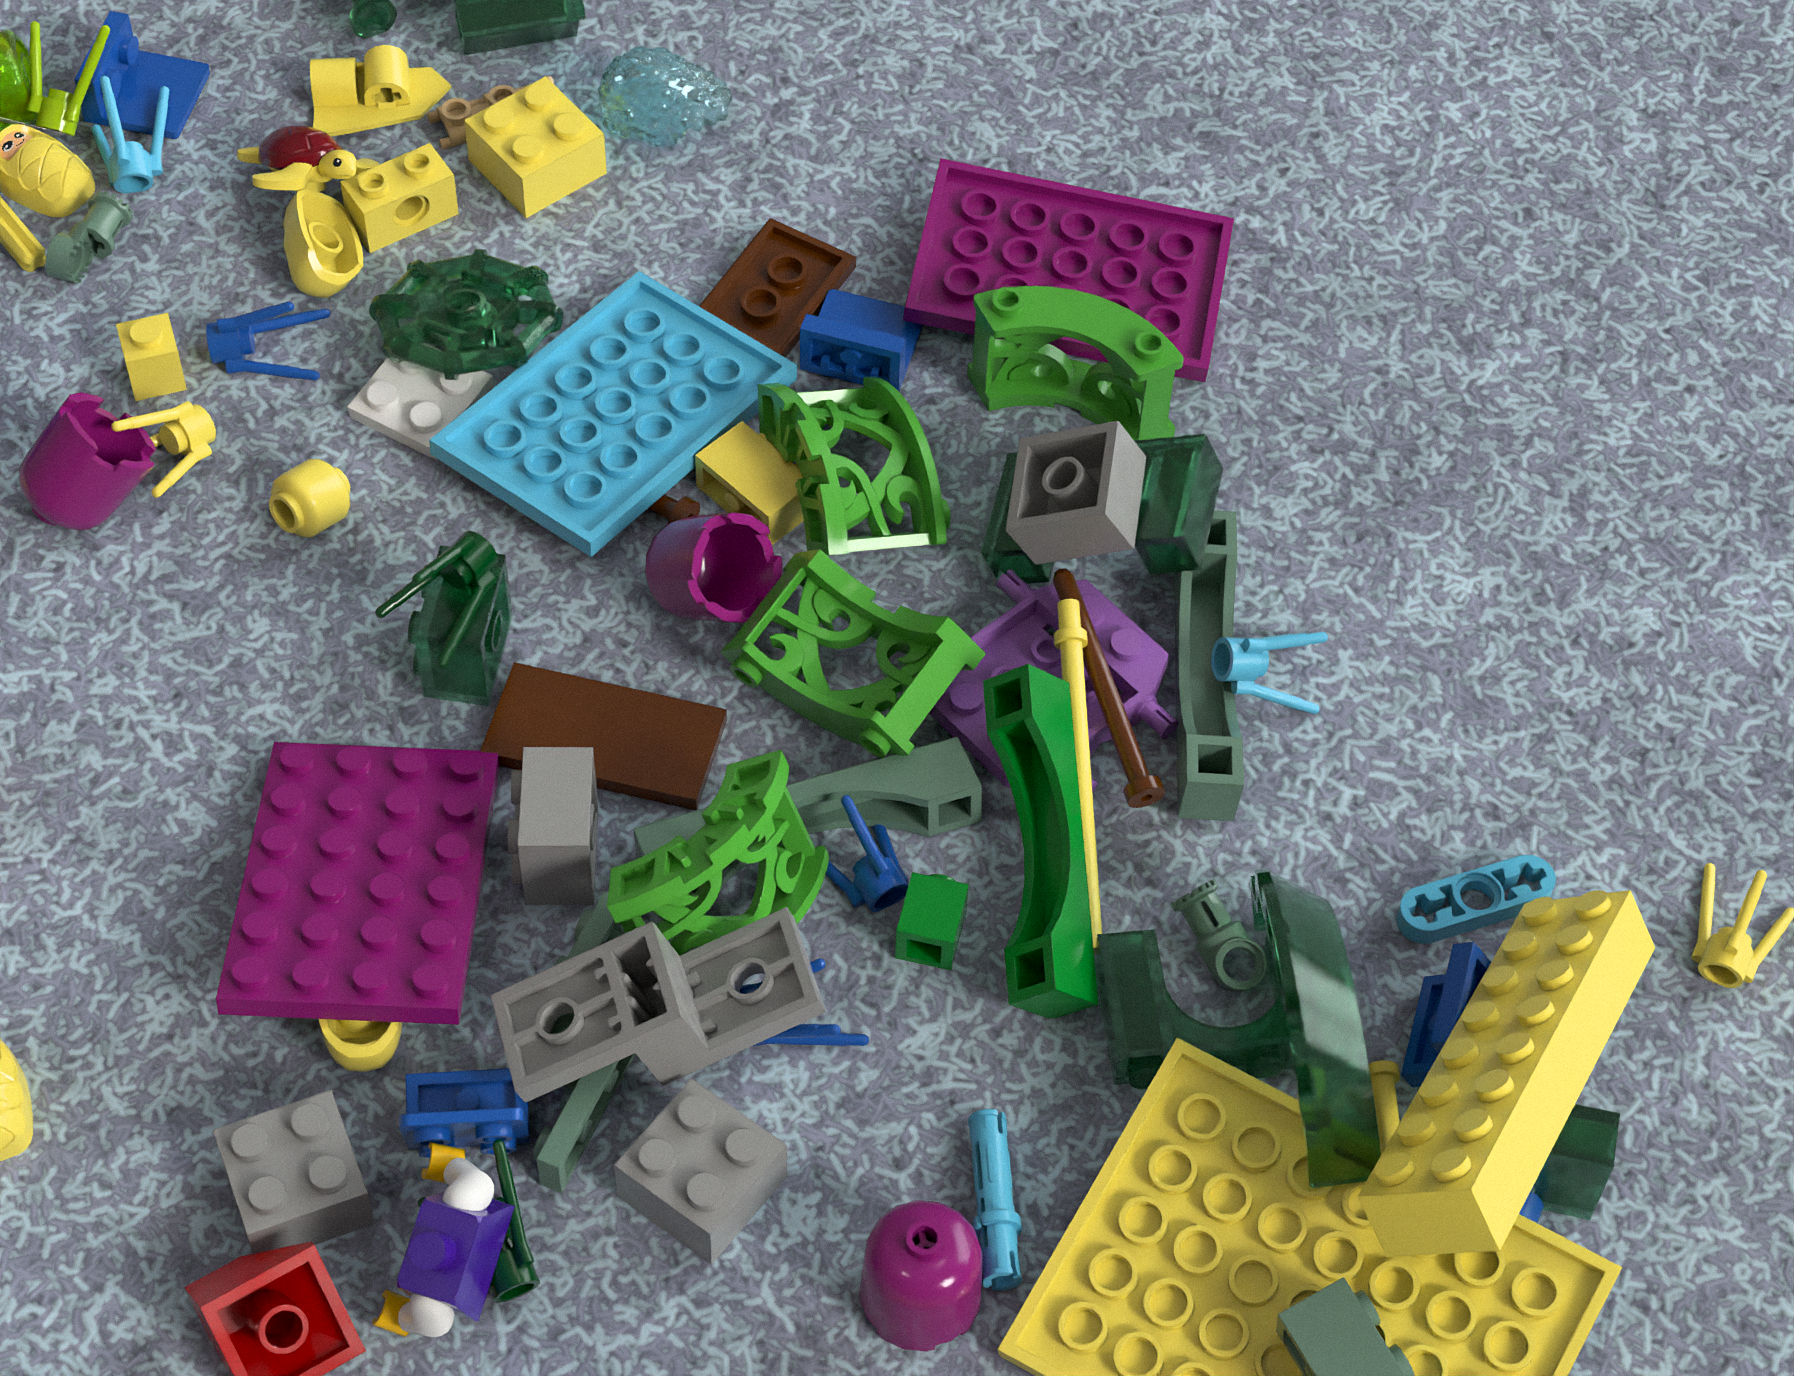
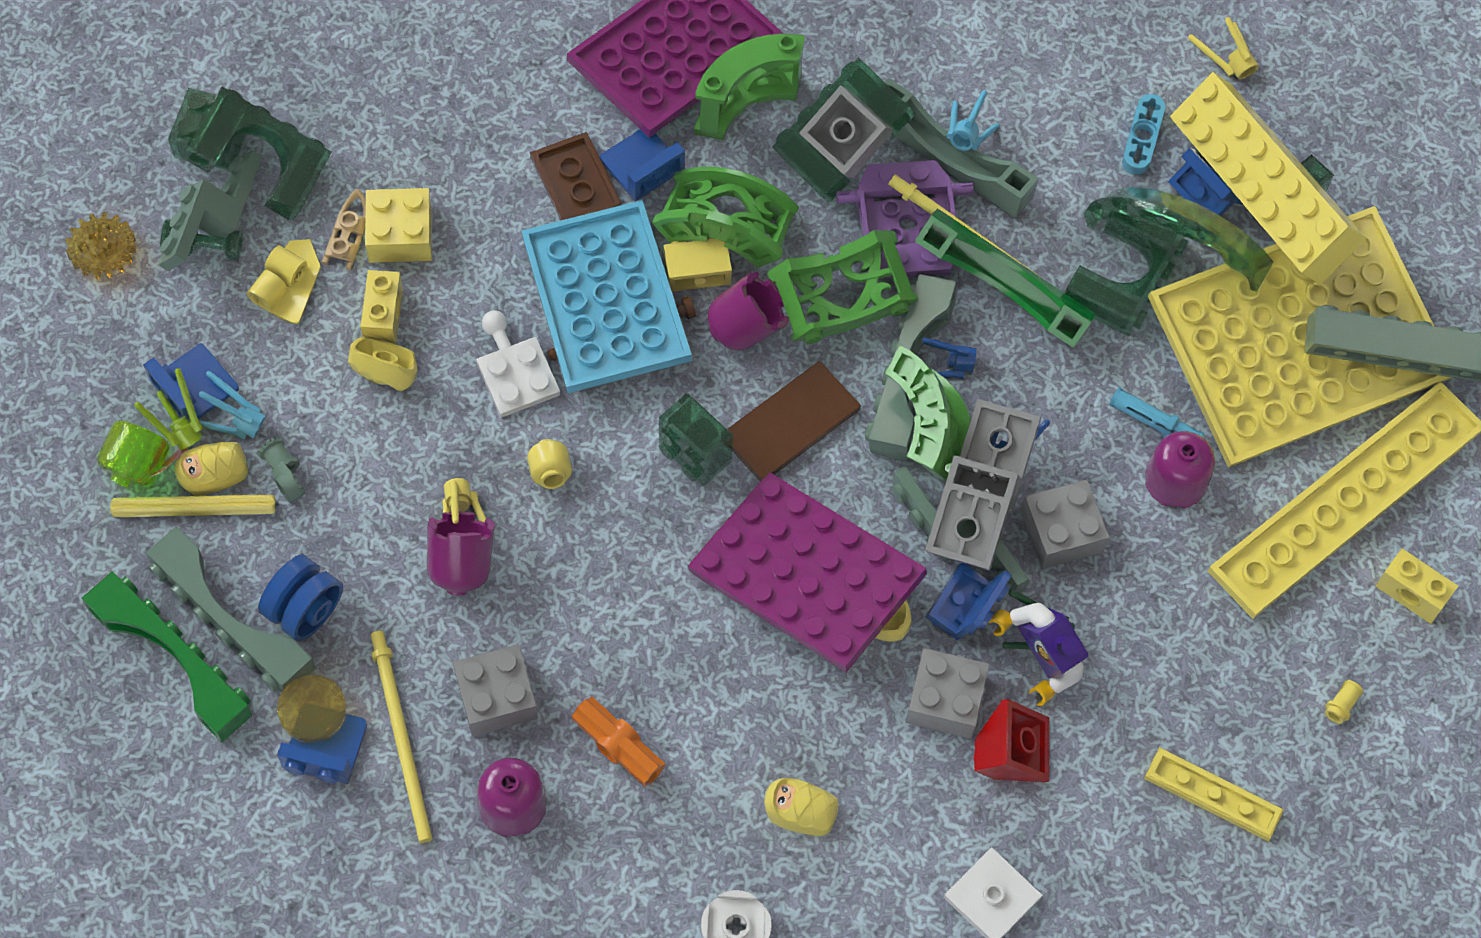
camera: 55 degrees left, 10 degrees up
(151, 356) = (397, 483): light yellow brick -> none
(233, 339) = (412, 439): blue plant -> none
(302, 160) = (325, 335): animal -> none
(461, 565) = (689, 413): dark green plant -> none
(468, 335) = (492, 338): clear green plate -> none
(555, 826) = (844, 469): light grey brick -> none
(659, 96) = (414, 149): clear light blue piece -> none
(931, 920) = (1001, 350): green brick -> none
(1142, 787) = (946, 200): reddish brown bar -> none
(1219, 935) = (1093, 243): sand green connector -> none

